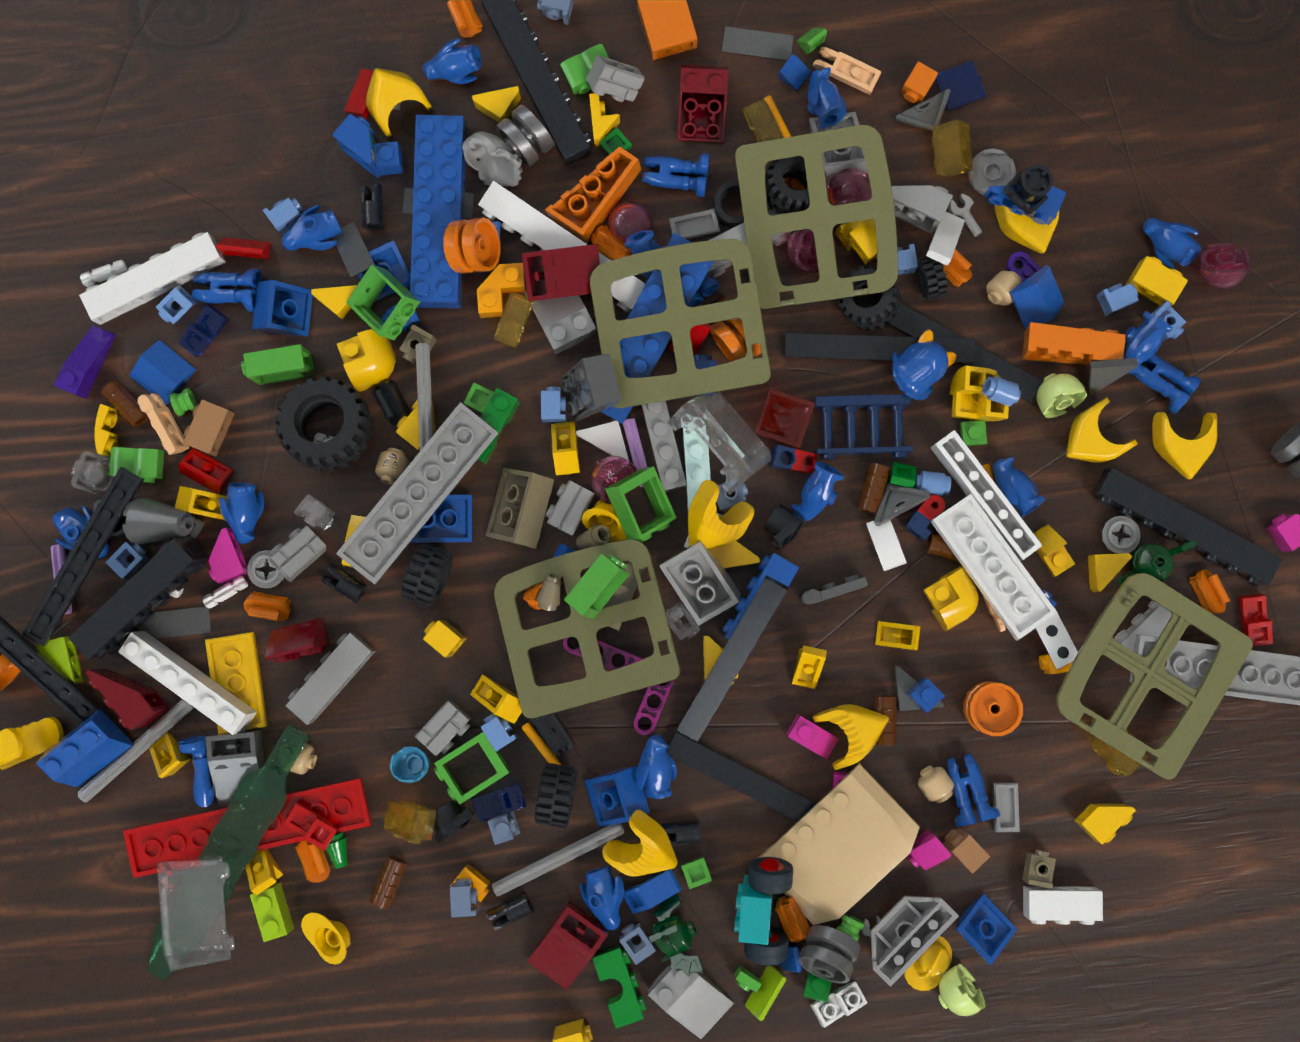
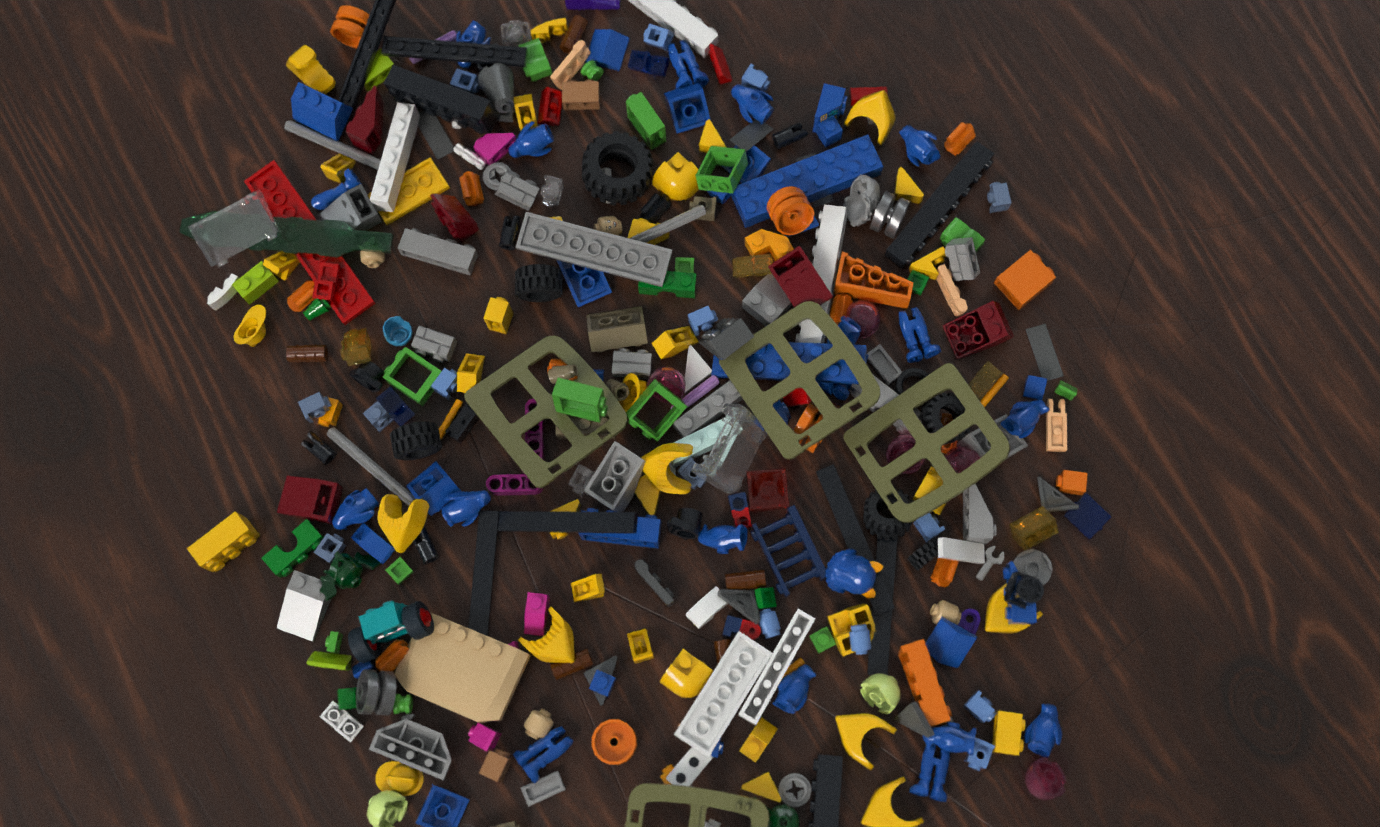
camera: 70 degrees right, 10 degrees down
(271, 962) = (221, 296): none -> white slope
(644, 111) = (951, 291): none -> light nougat hinge

